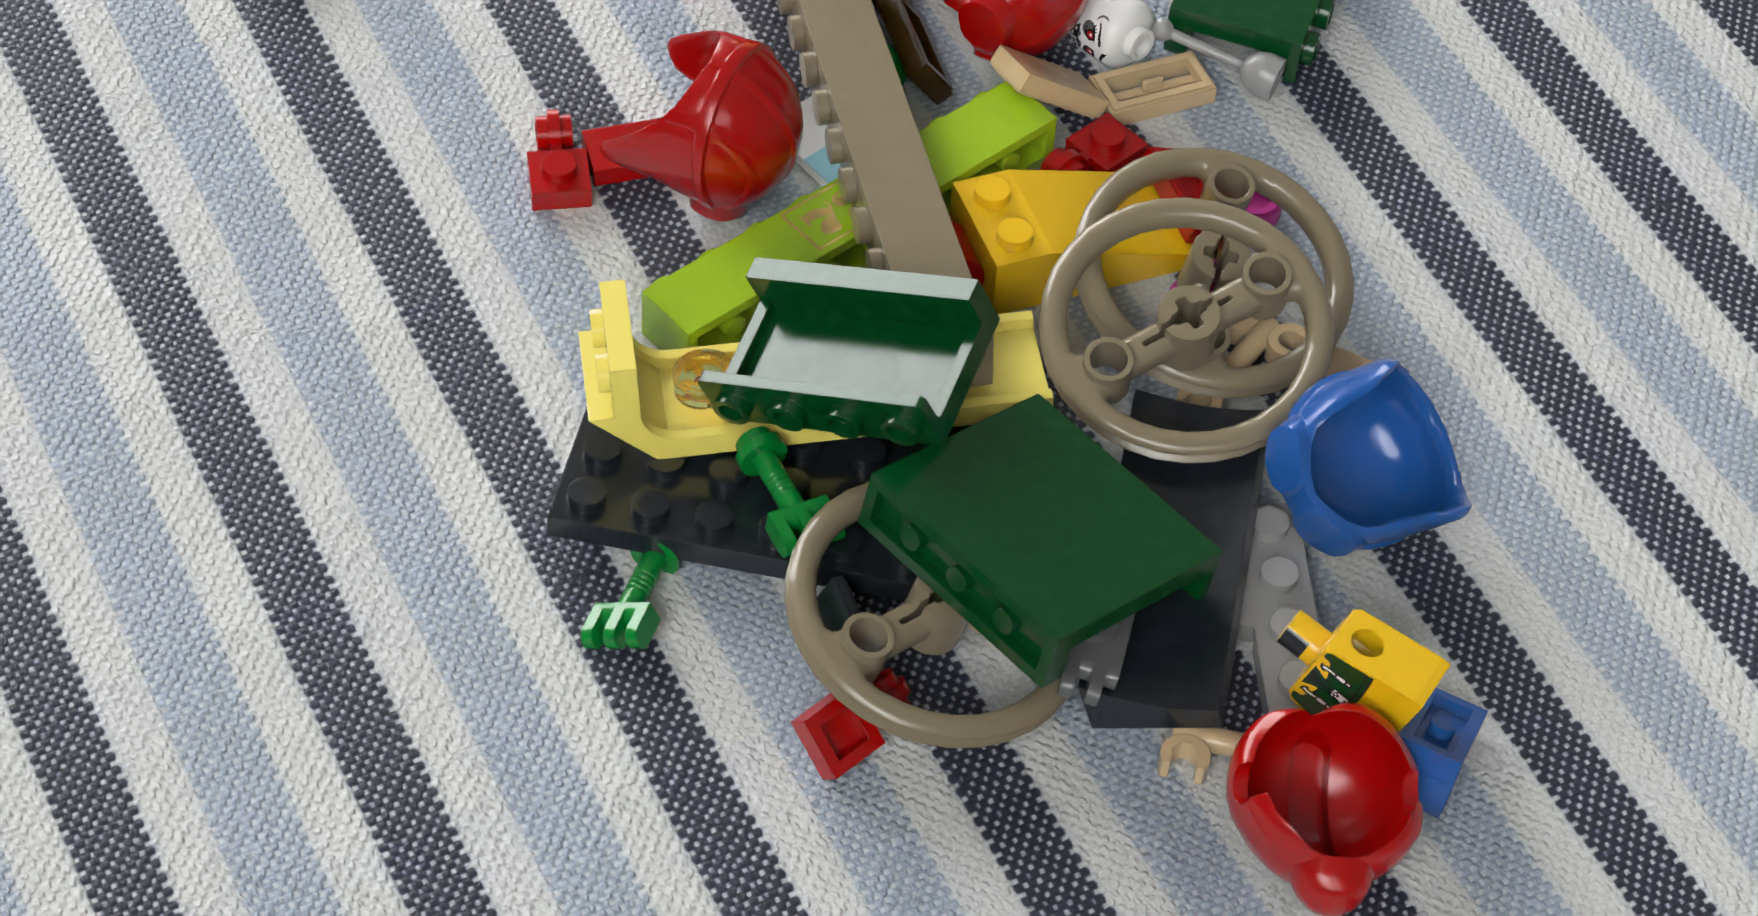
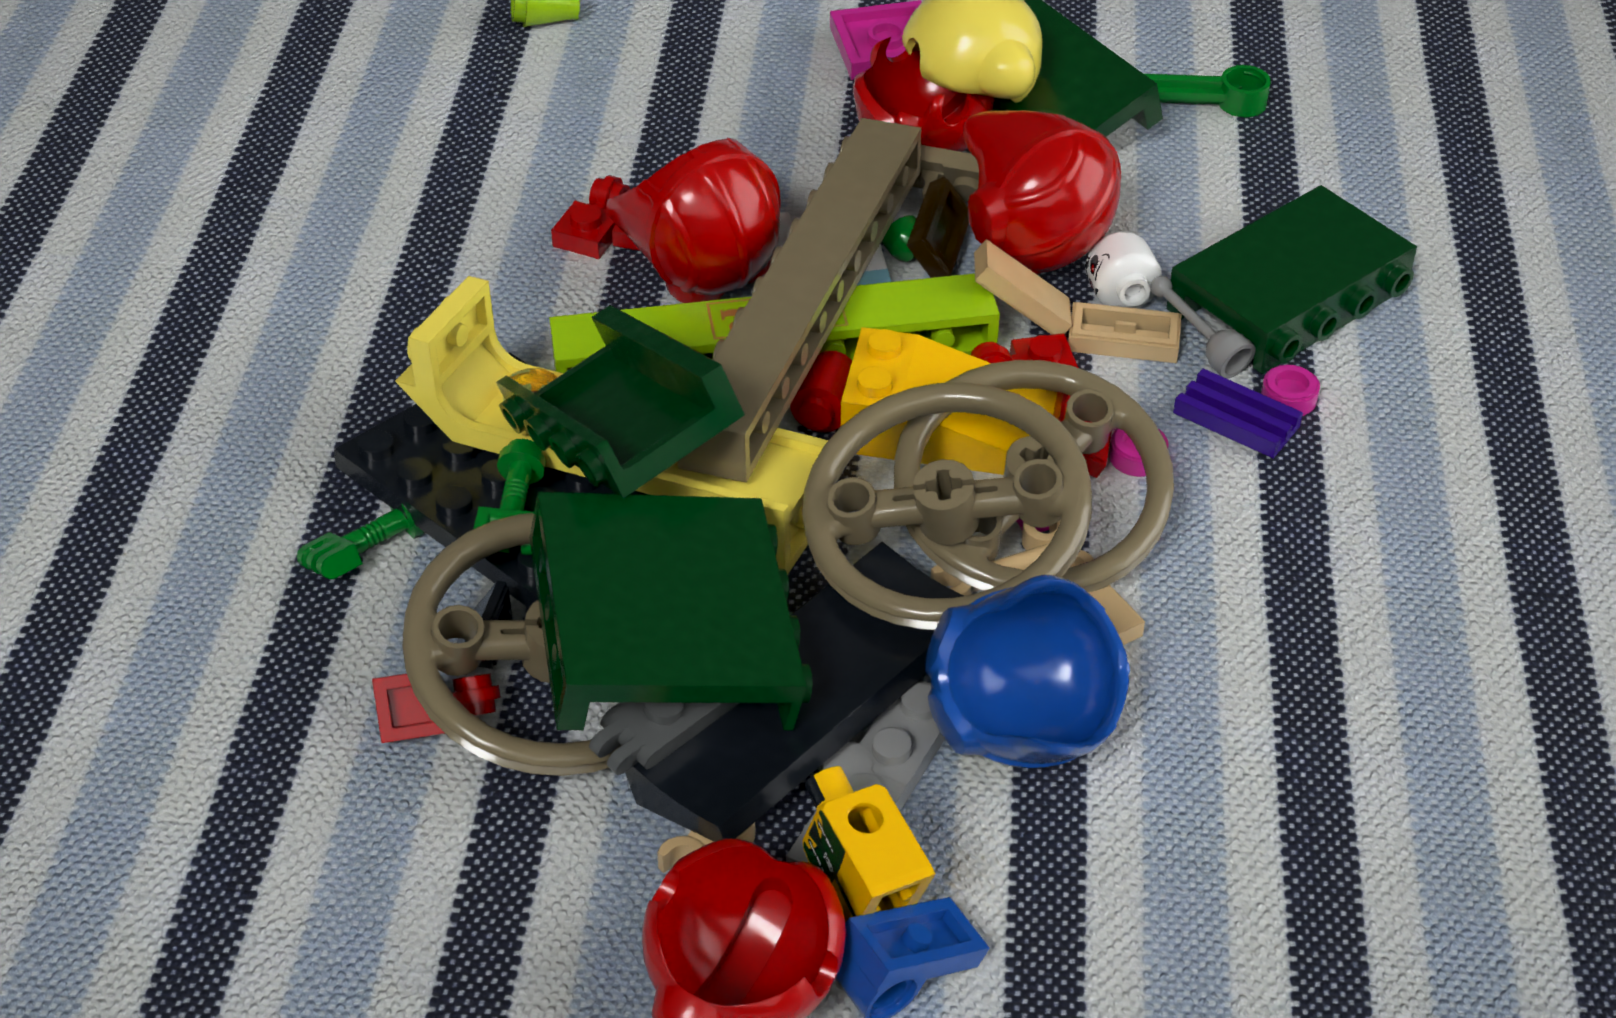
camera: 35 degrees right, 5 degrees down
(1309, 132) = (1238, 413): none -> dark purple tile
(1335, 91) = (1292, 387): none -> dark pink tile

